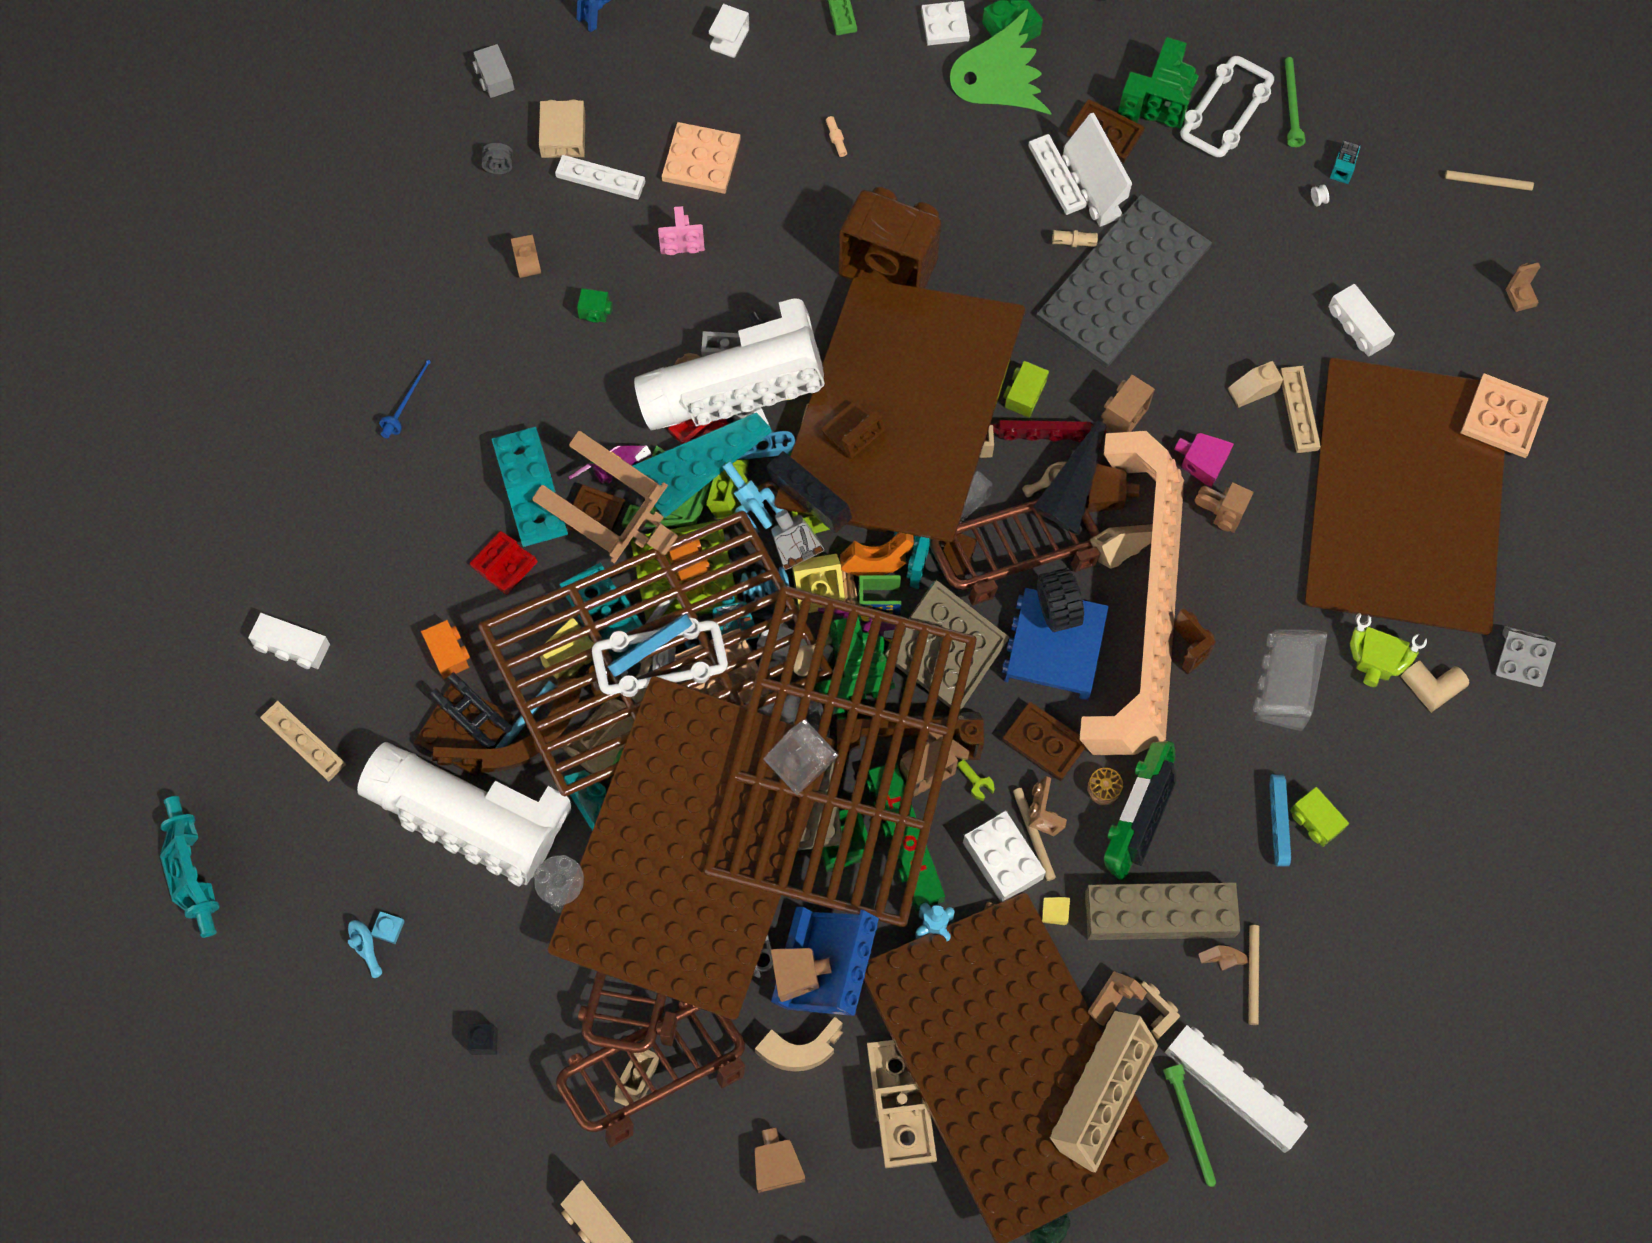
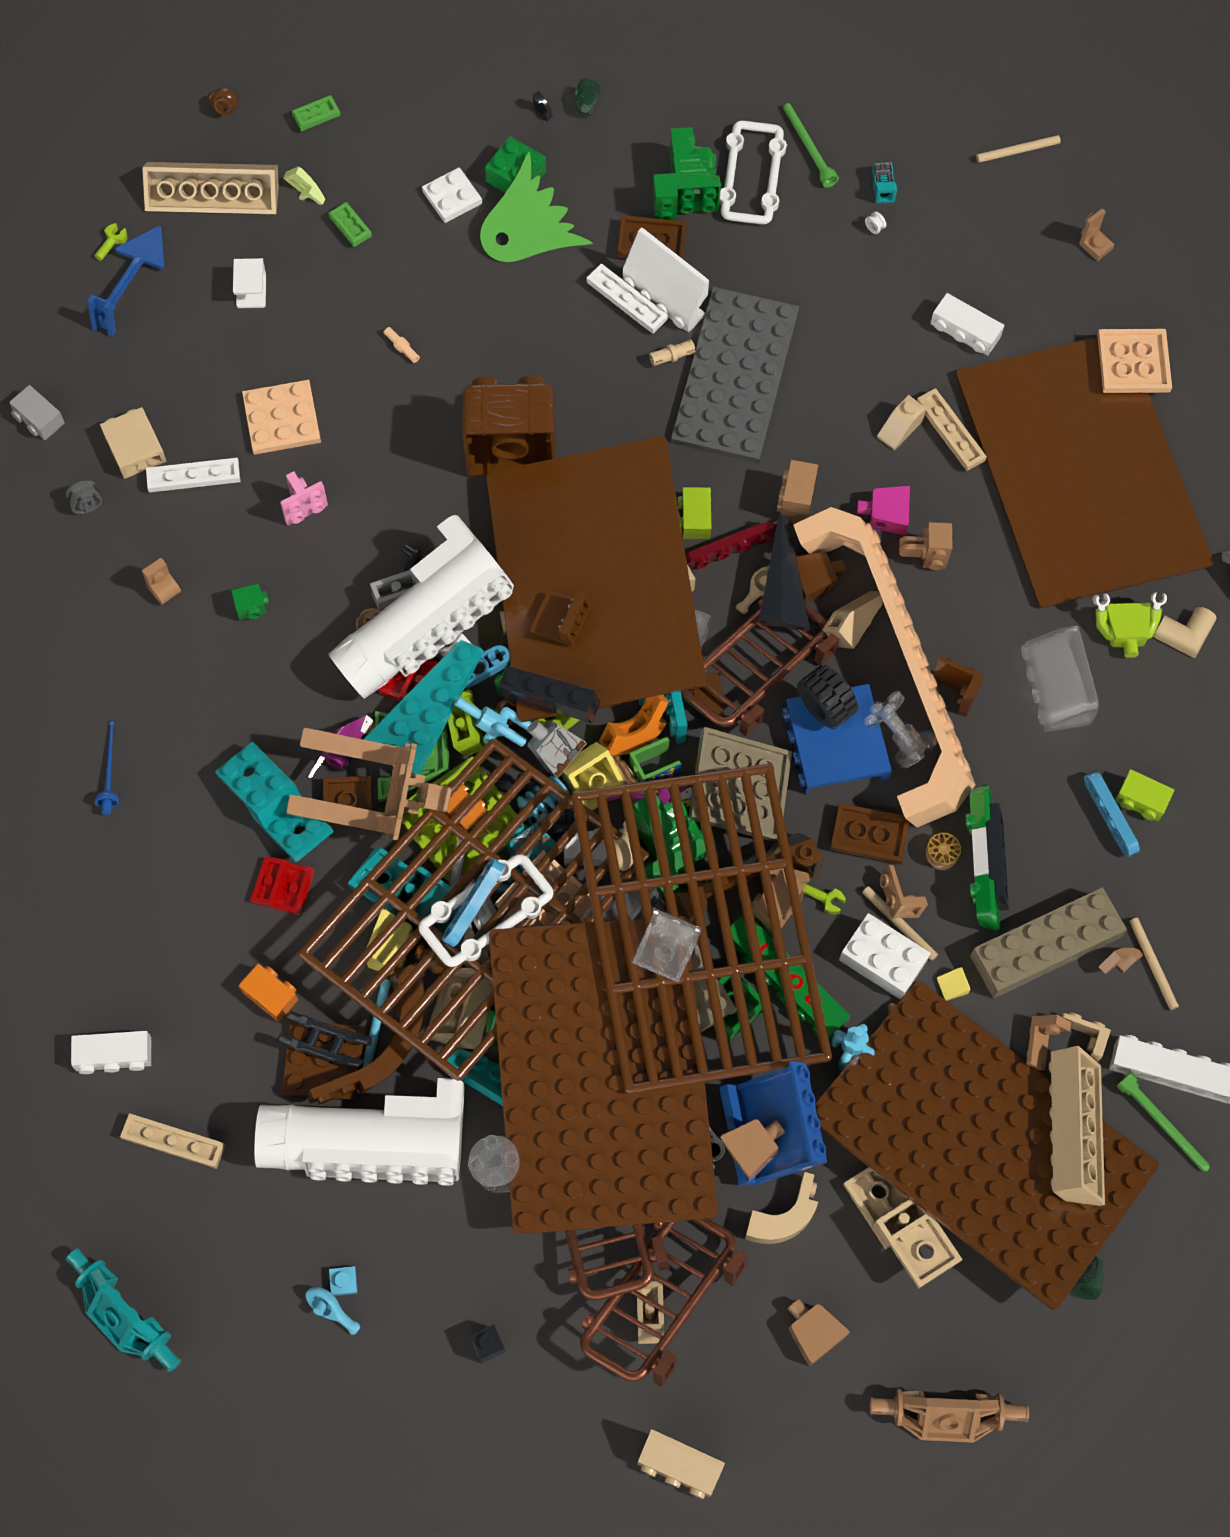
camera: 25 degrees left, 0 degrees up
(1118, 667) = (905, 736): none -> clear piece

